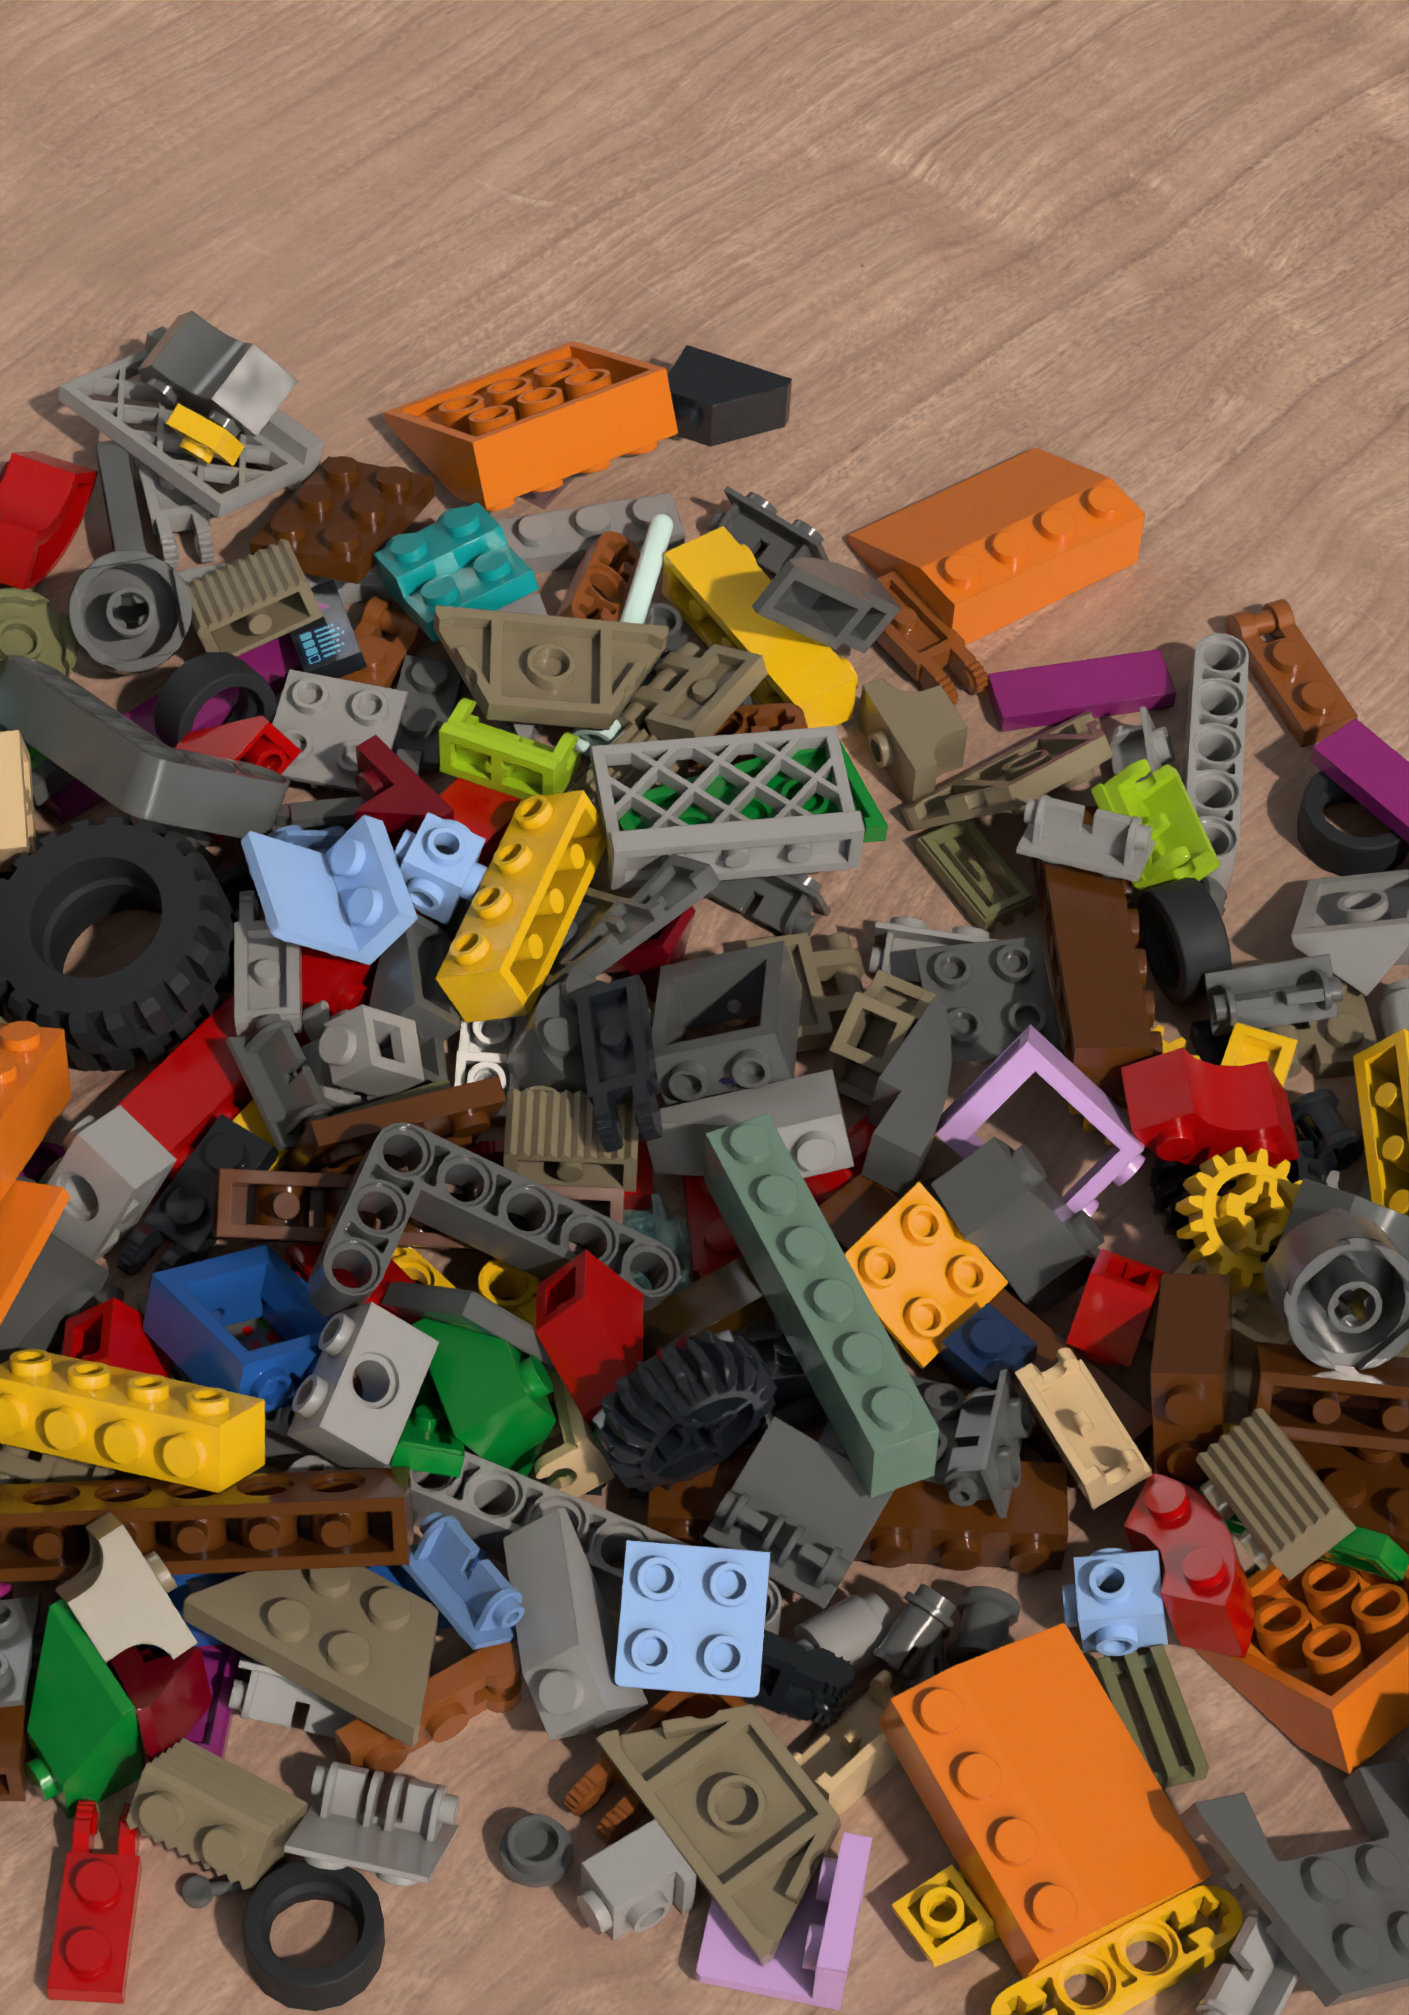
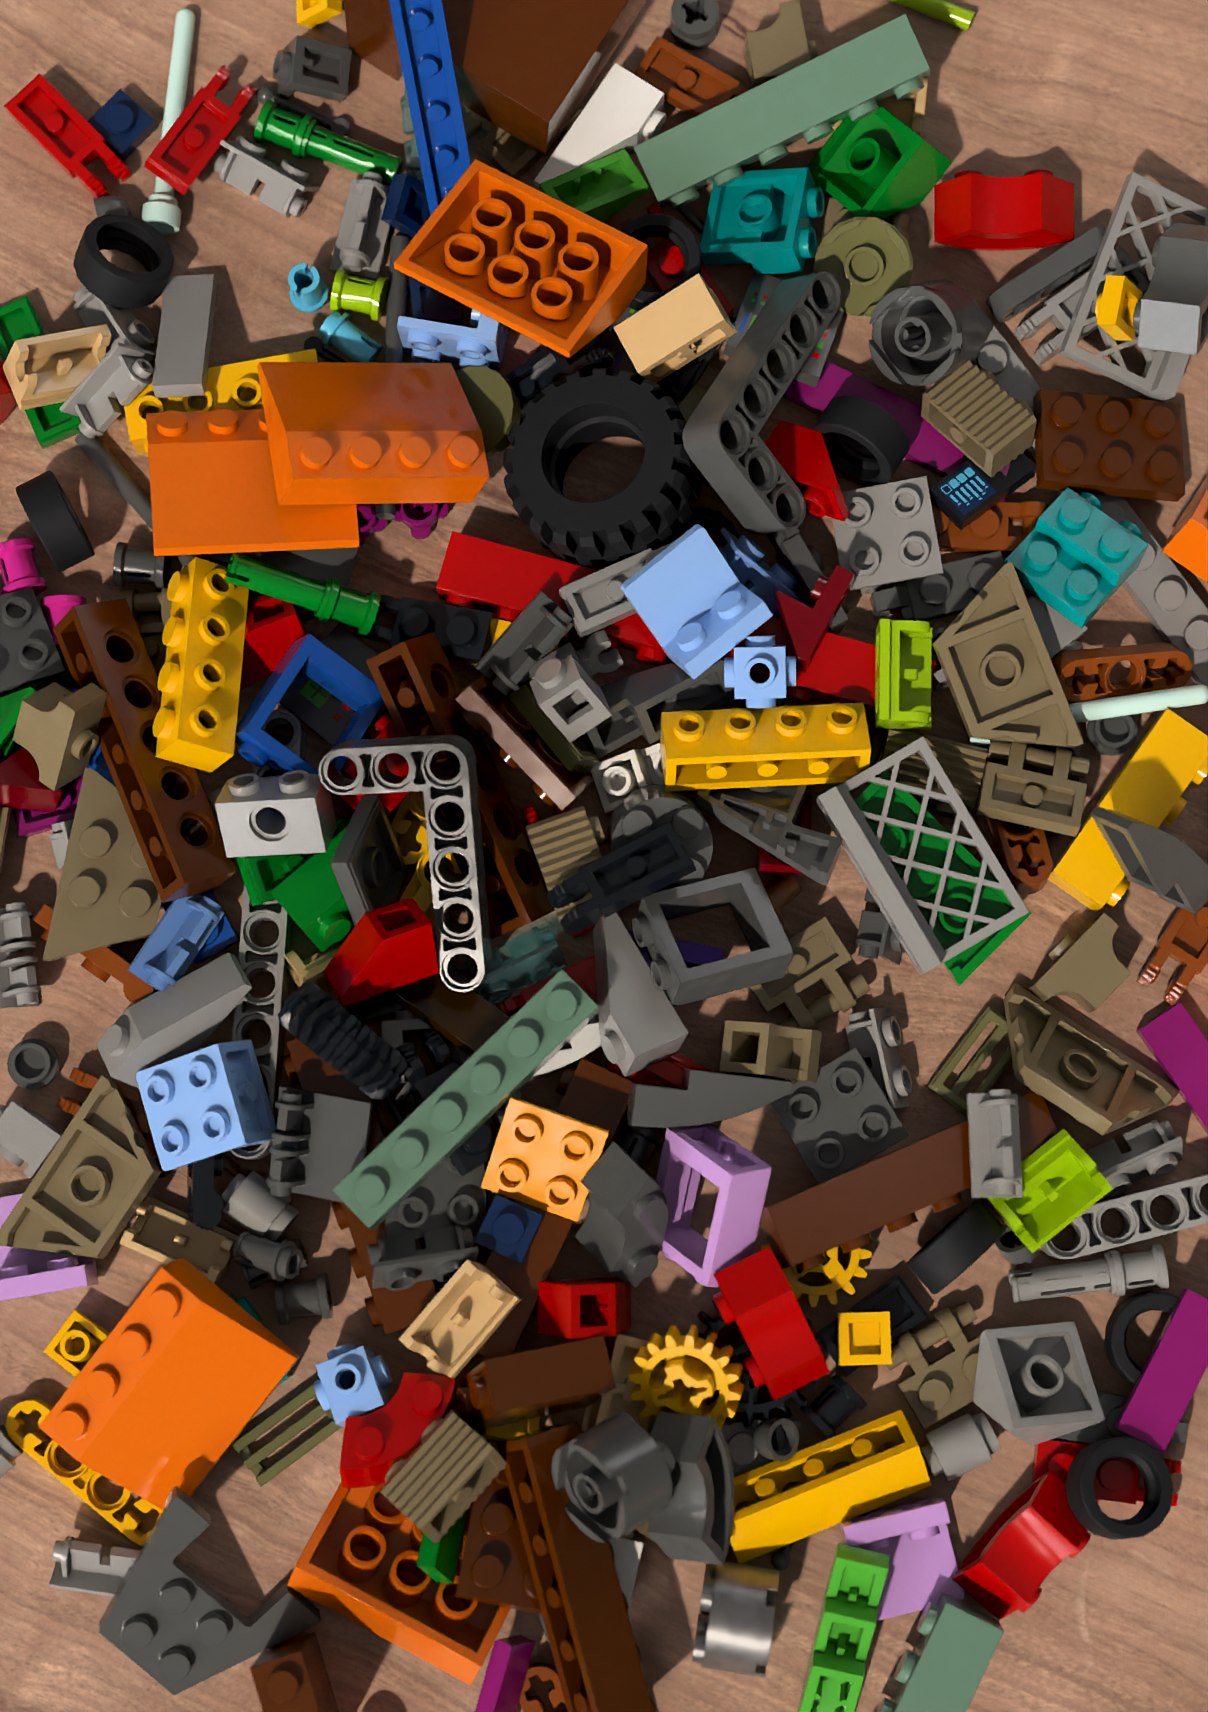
camera: 75 degrees right, 30 degrees up
(109, 1271) = (325, 598): none -> green pin
(111, 1178) = (395, 559): light grey brick -> none
(1266, 832) = (1112, 1273): none -> light grey pin
(1272, 994) = (935, 1345): dark grey hinge -> none
(1347, 1176) = (776, 1439): none -> dark grey hinge

